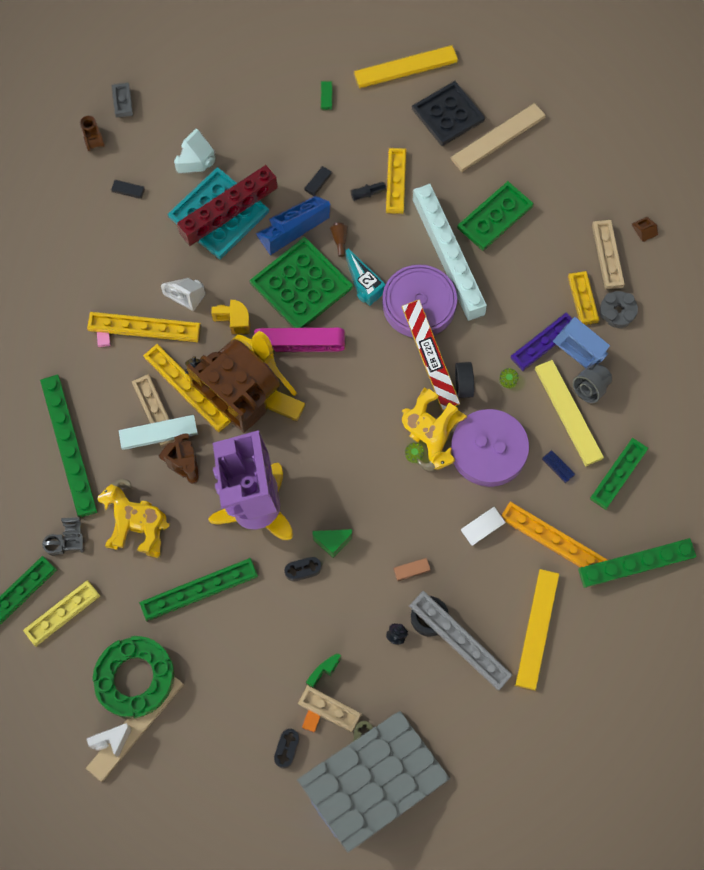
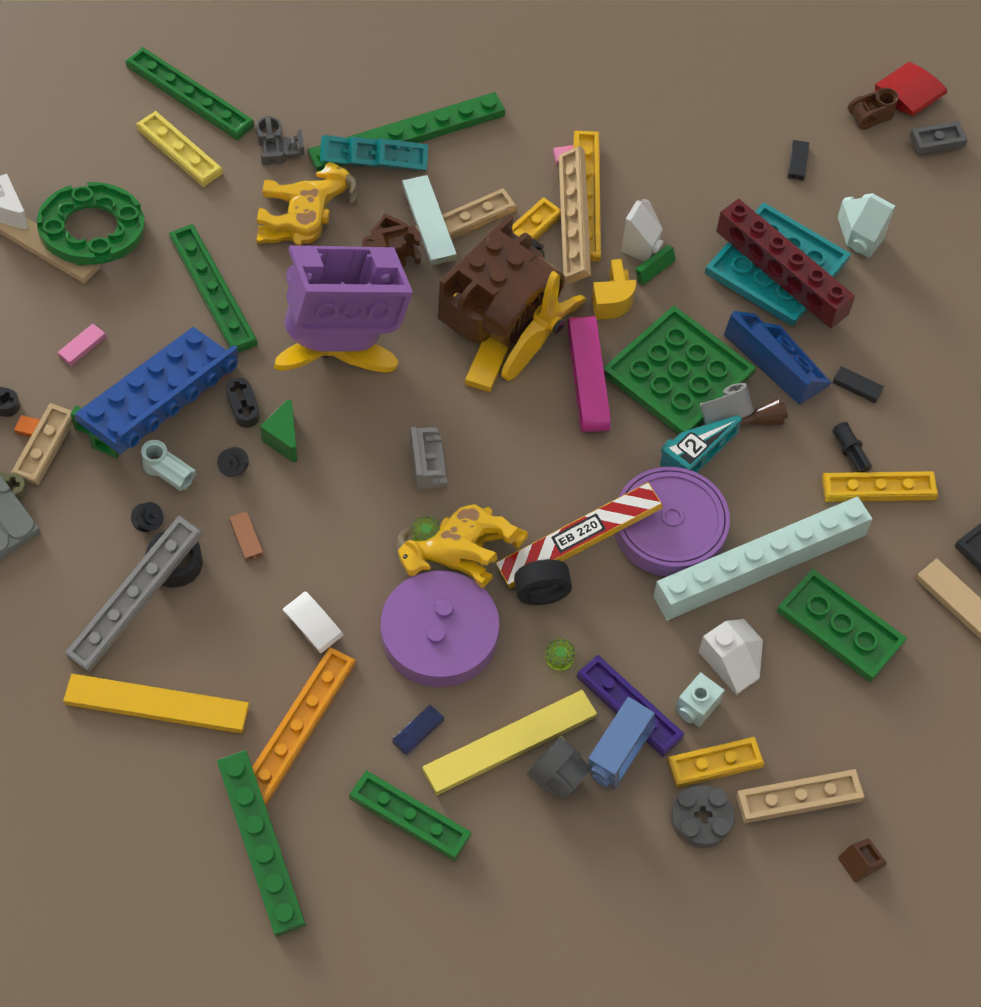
camera: 80 degrees right, 10 degrees down
(74, 107) = (914, 87): none -> red slope
(91, 467) = (374, 153): none -> teal slope
(164, 334) = (574, 215): none -> tan tile
(212, 290) = (655, 264): none -> green piece
(241, 684) = (81, 345): none -> bright pink piece
(294, 624) = (157, 390): none -> blue bracket
(335, 251) = (734, 402): none -> light grey panel
(355, 575) = (233, 461): none -> black wheel
(356, 619) = (167, 466): none -> light aqua piece
(360, 448) = (428, 458): none -> light grey hinge
(511, 278) = (734, 653): none -> white slope
(545, 300) = (699, 700): none -> light aqua brick

